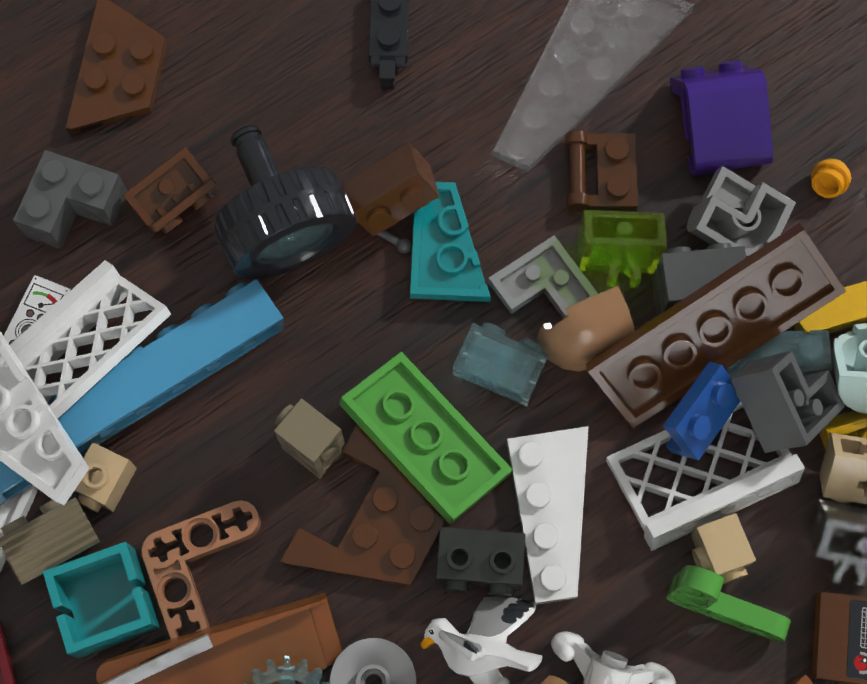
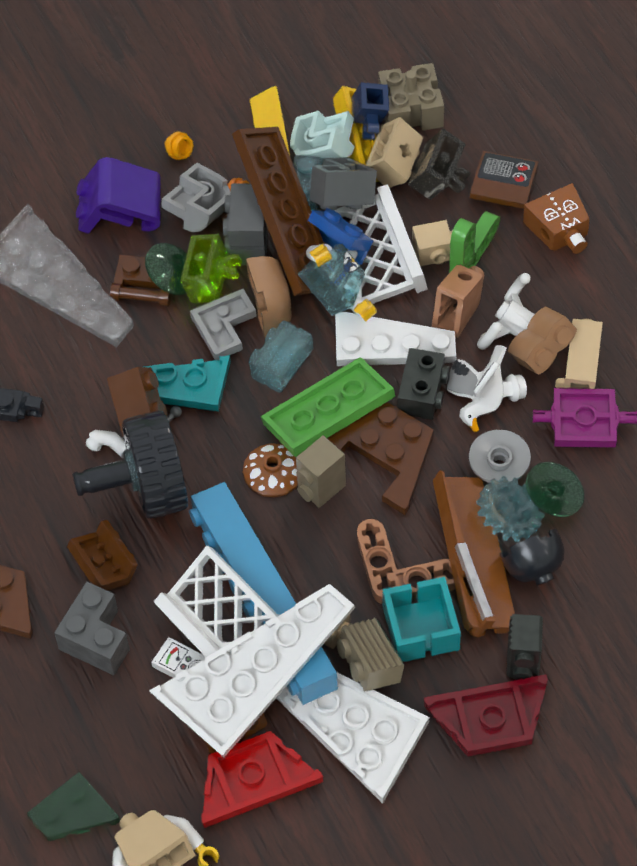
camera: 80 degrees left, 15 degrees down
(315, 364) = (270, 480): none -> dark orange dish
(348, 161) = (107, 438): none -> white arm
(614, 591) = (459, 286): none -> nougat torso
(615, 181) = (165, 267): none -> clear green dish
(620, 418) = (336, 279): none -> clear light blue torso

